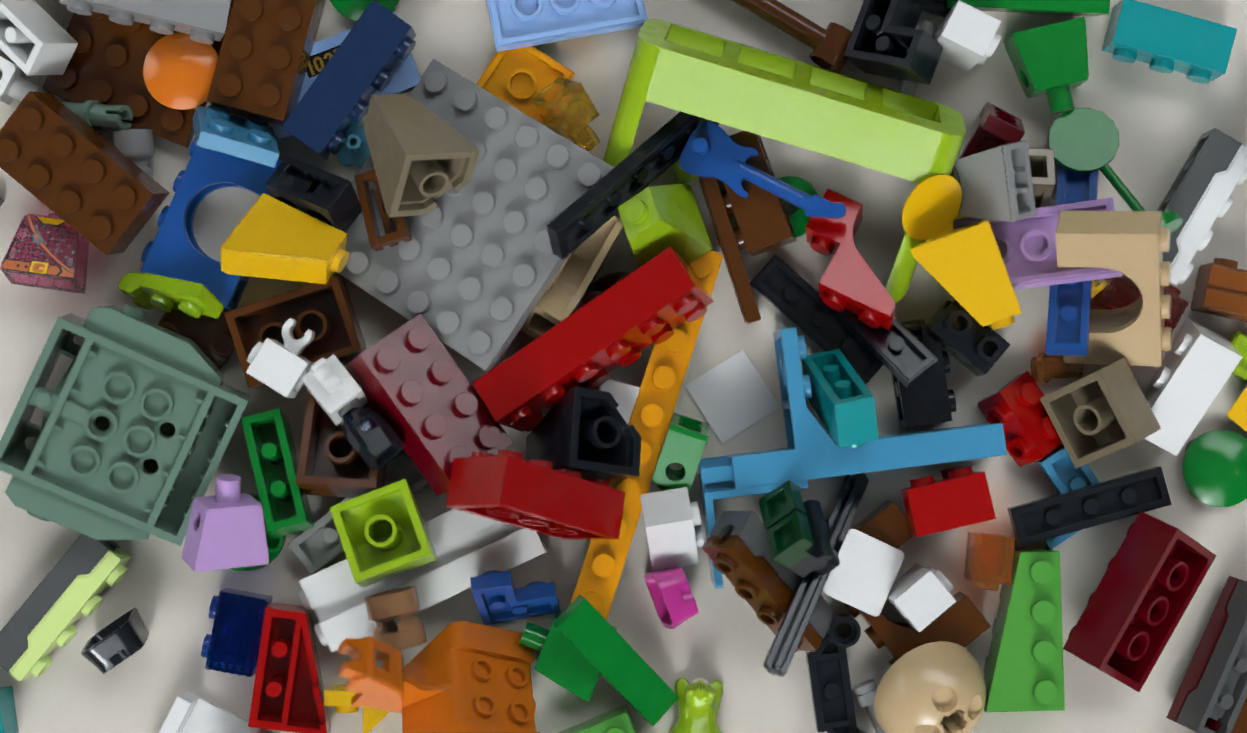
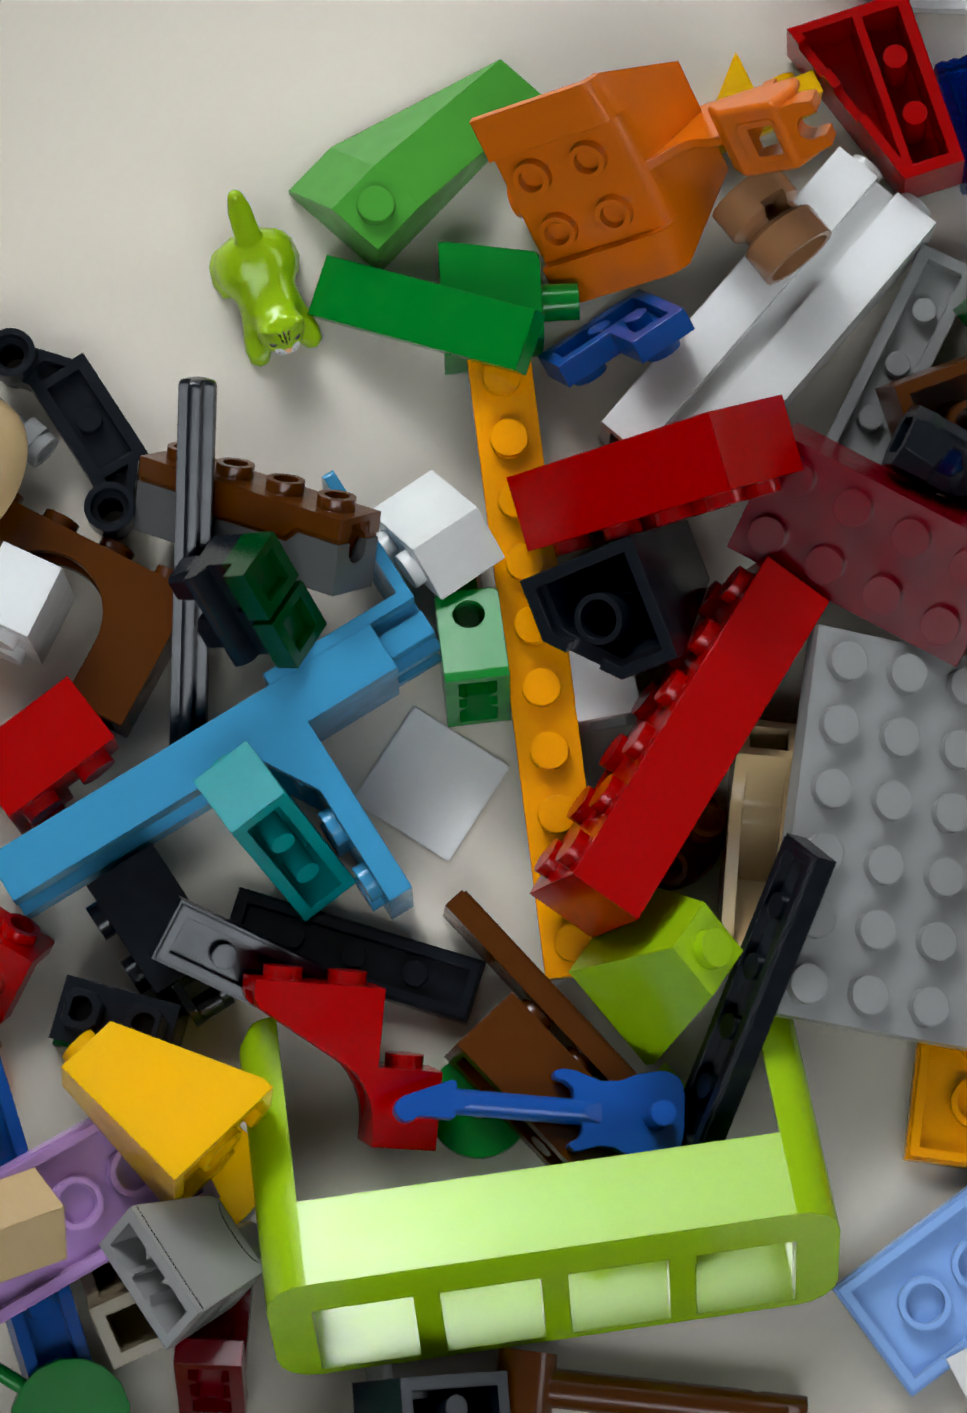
camera: 155 degrees right, 10 degrees down
(383, 533) = (850, 331): lime slope -> none
(568, 111) = (887, 1086): clear yellow brick -> none
(671, 596) = (387, 444): dark pink piece -> none
(864, 572) = (121, 598): white sticker -> none
(931, 207) = (266, 1179): yellow sticker -> none

